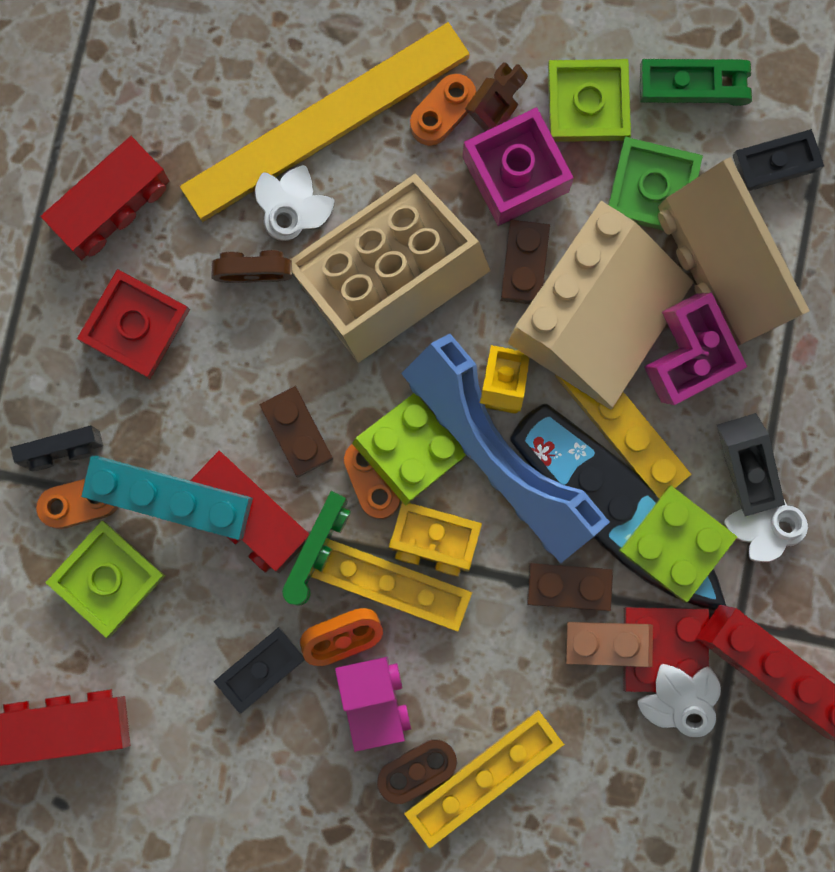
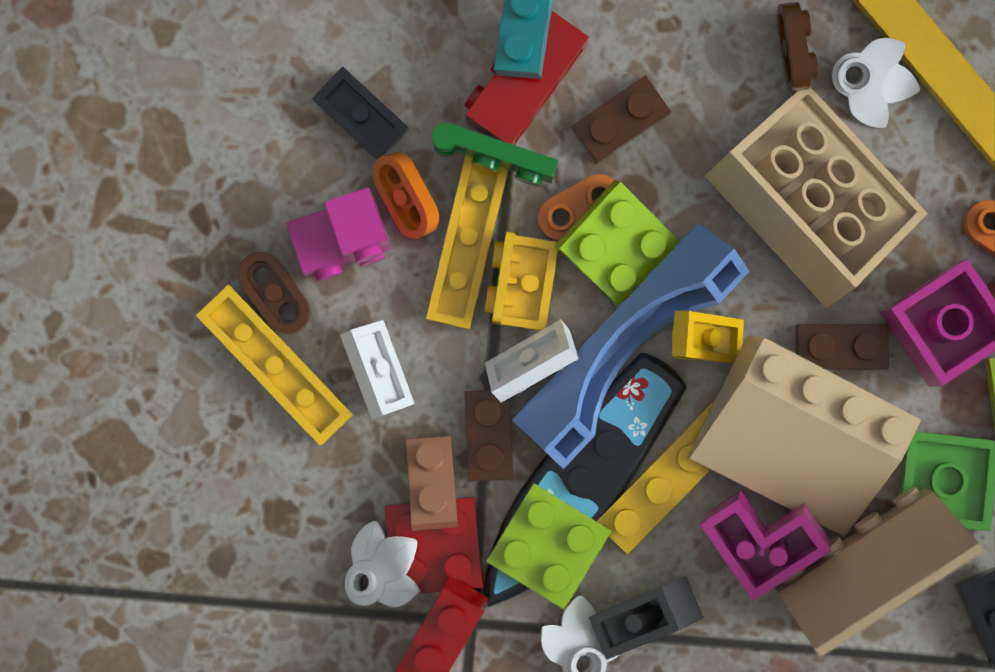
camera: 80 degrees right, 5 degrees up
(499, 682) = (377, 369): none -> white plate
(508, 539) = (531, 361): none -> white plate

